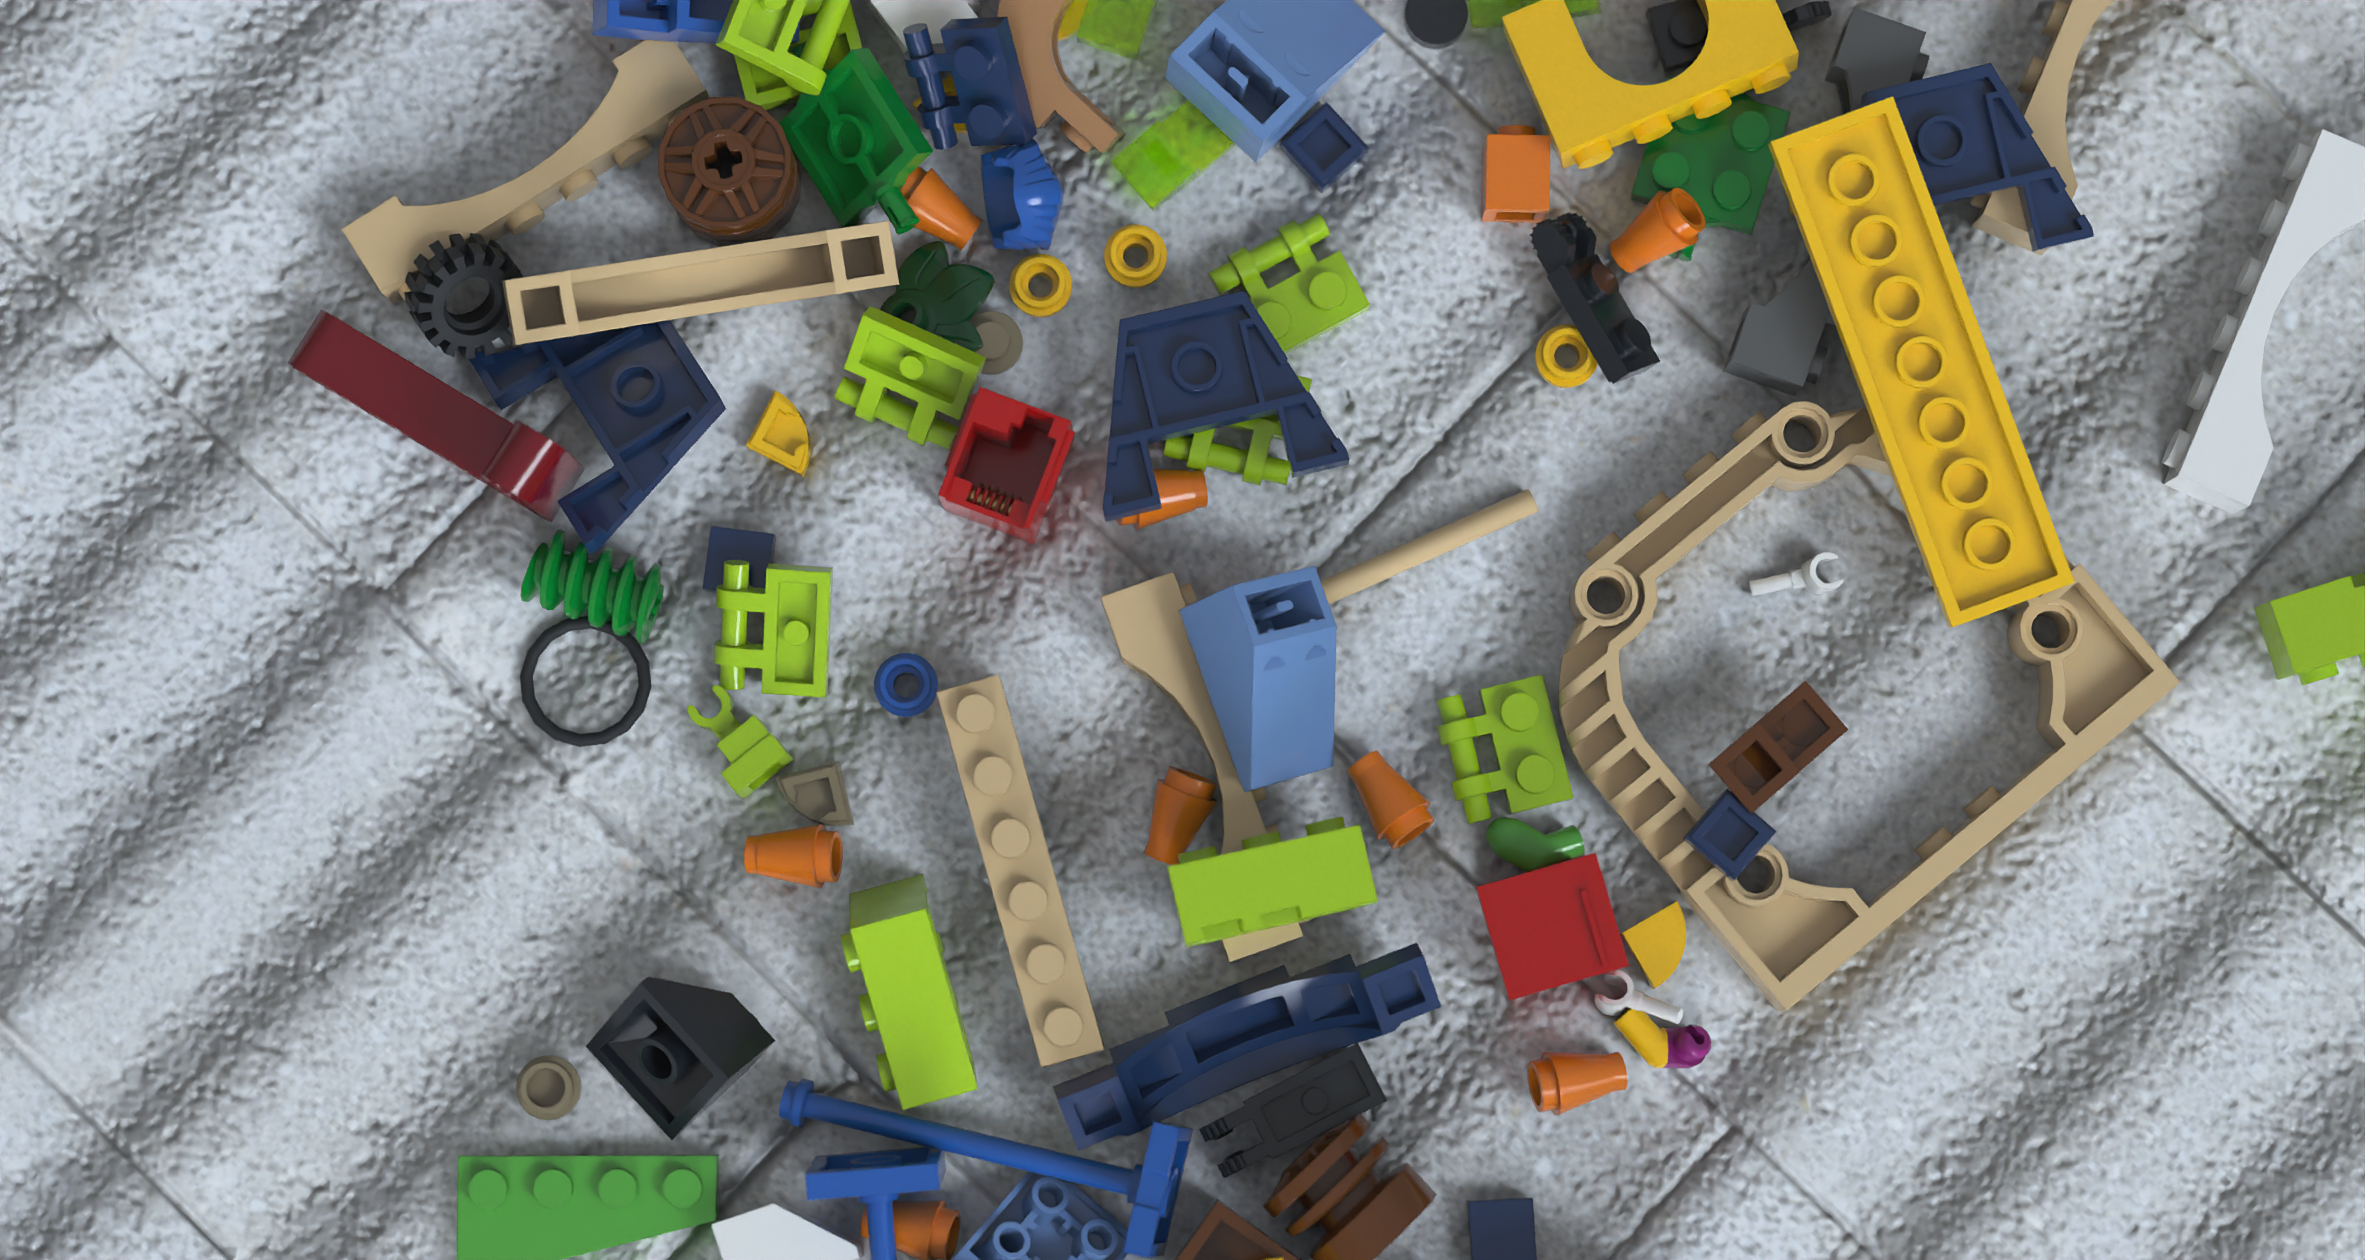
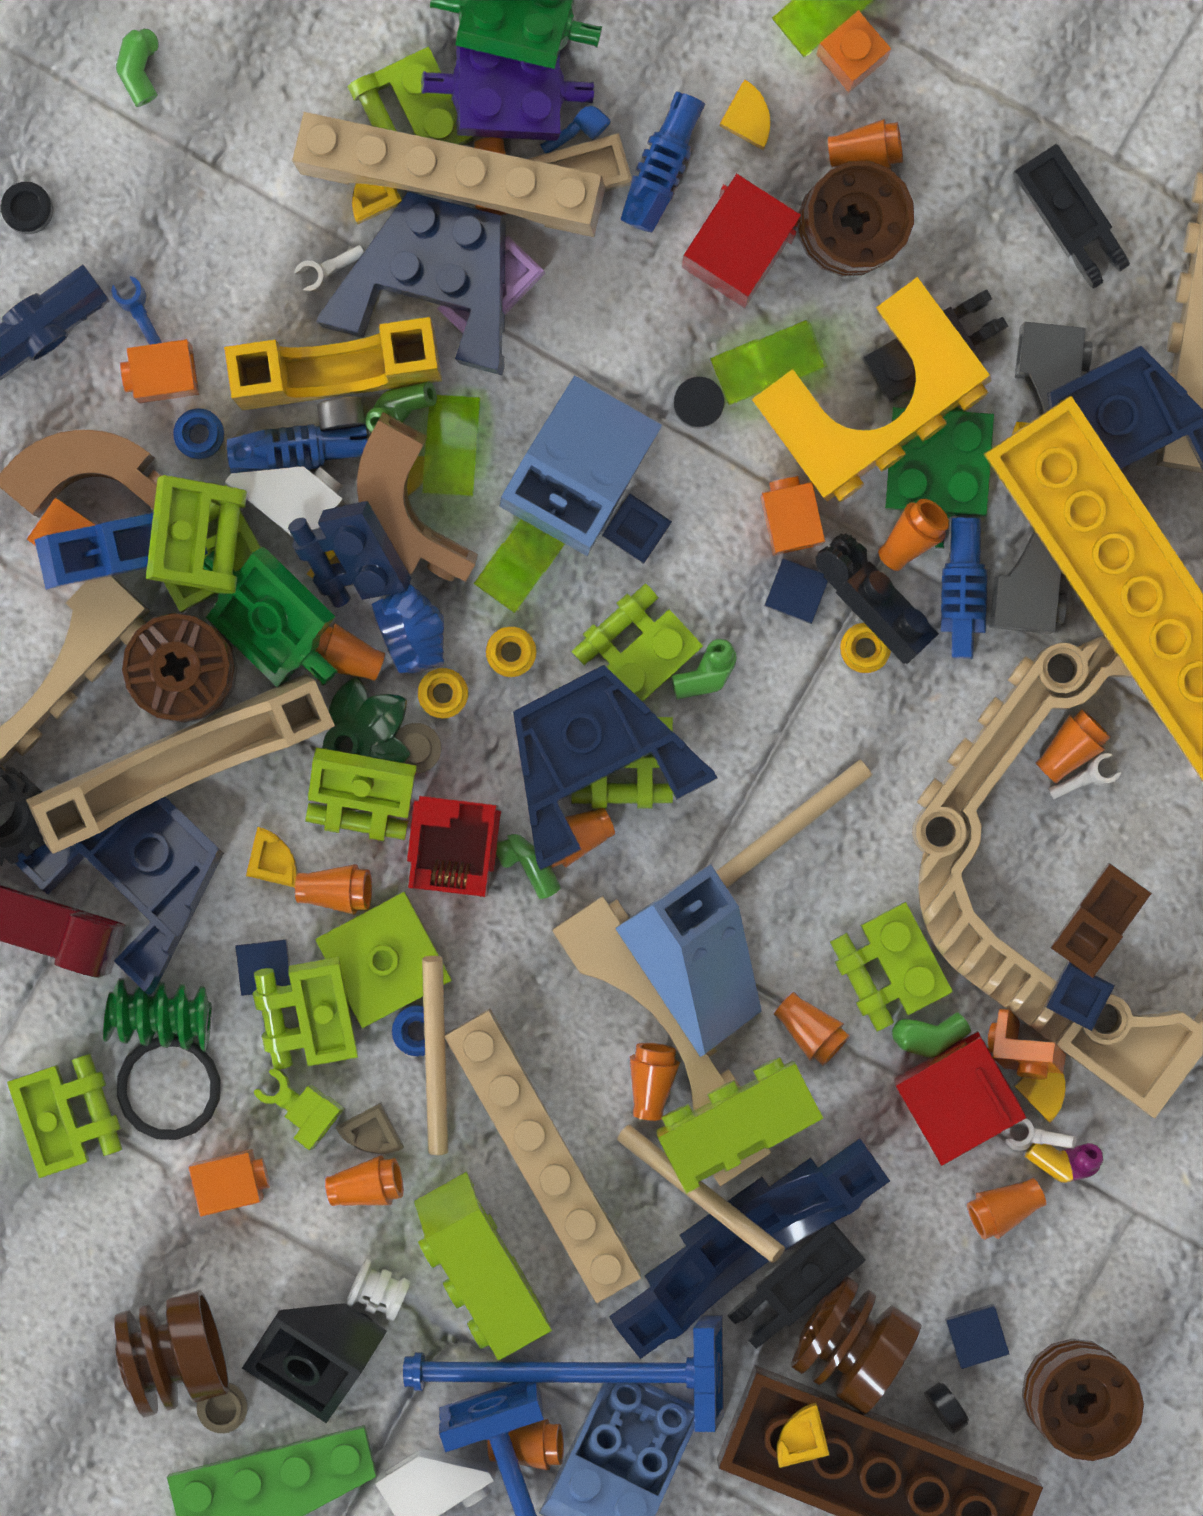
camera: 15 degrees left, 5 degrees up
(430, 684) = (49, 1119): none -> lime plate
(492, 1000) = (171, 1353): none -> reddish brown wheel
(628, 810) = (228, 1182): none -> orange brick
(776, 990) = (378, 1291): none -> white bush
(853, 488) = (337, 888): none -> orange cone
(889, 589) = (381, 958): none -> lime plate
(920, 716) = (435, 1055): none -> tan bar
(1087, 496) = (519, 849): none -> bright green arm
(1205, 967) = (703, 1196): none -> tan bar
(1373, 339) = (711, 673): none -> bright green arm
(1499, 268) = (796, 591): none -> dark blue tile
(1644, 895) = (1028, 1057): none -> orange bracket
(1704, 312) = (964, 587): none -> blue hinge
(1792, 534) = (1073, 746): none -> orange cone

